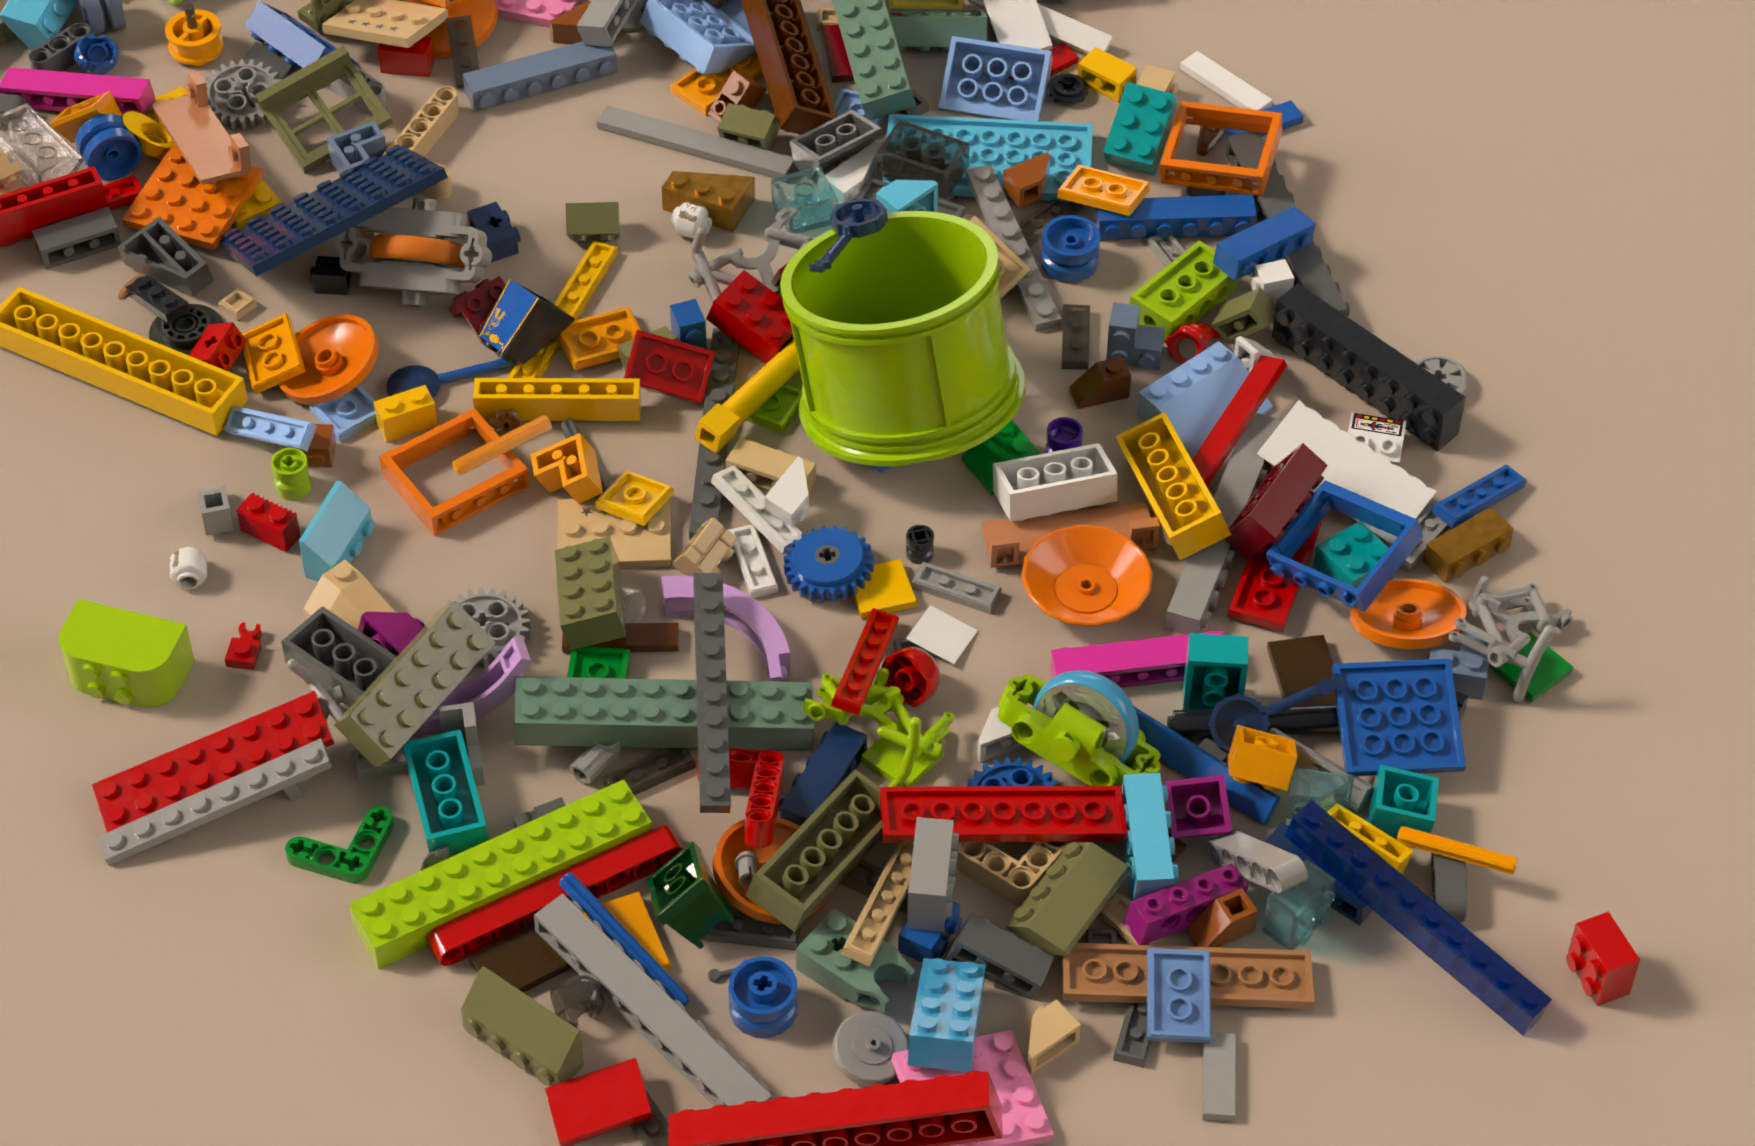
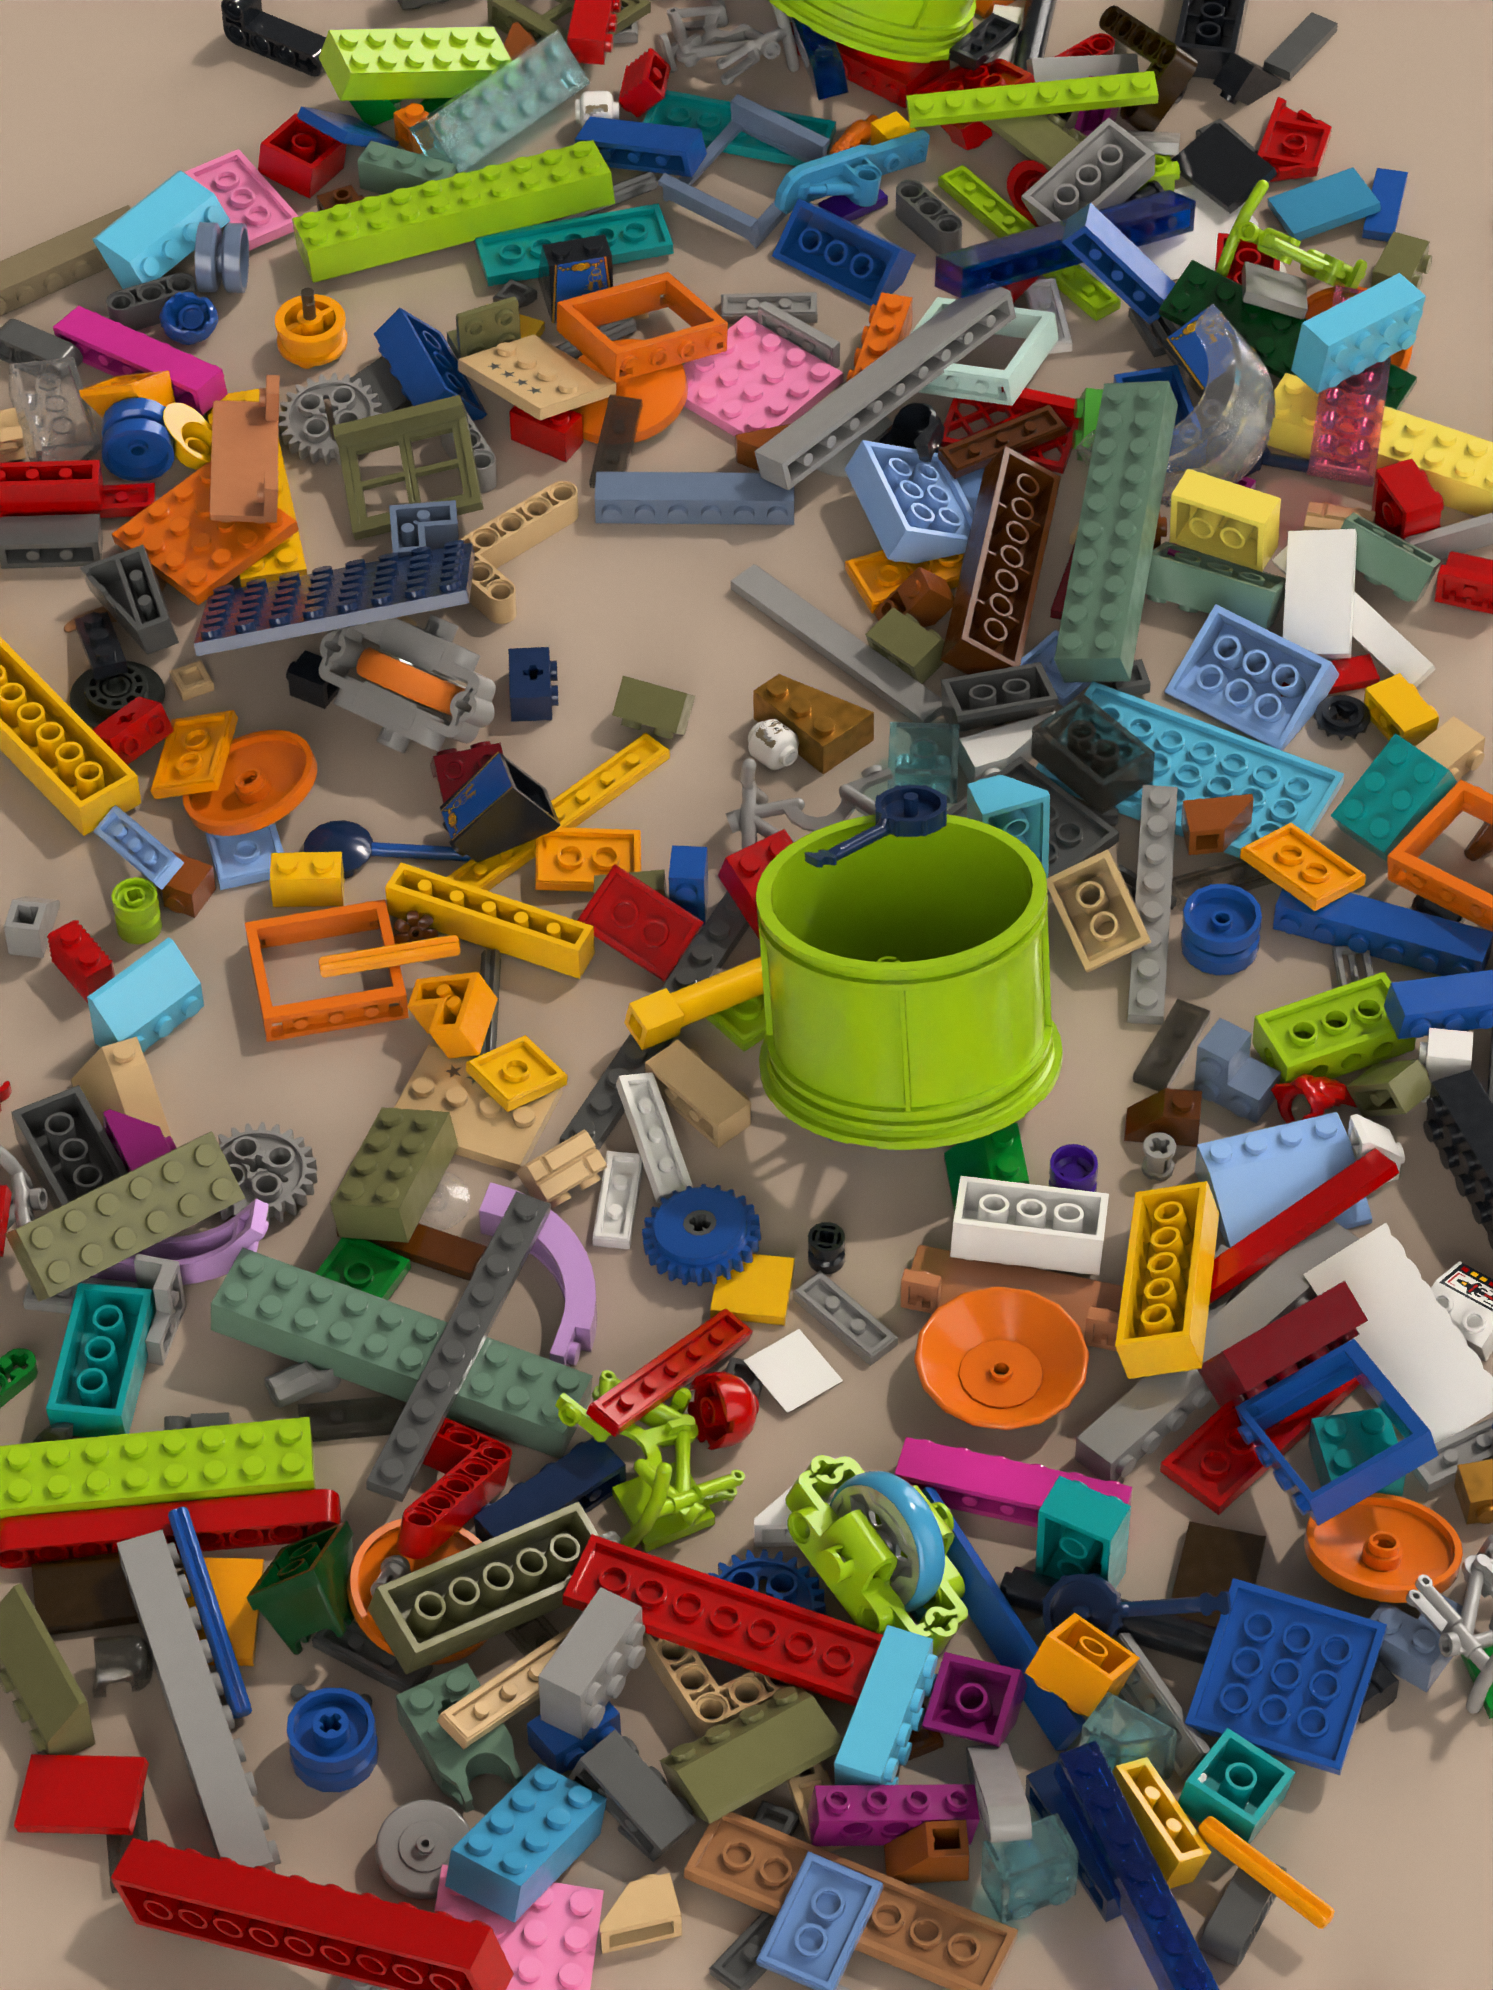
camera: 25 degrees right, 0 degrees up
(790, 495) = (695, 1131): white slope -> none
(1111, 414) = (1156, 1157): none -> light grey bush

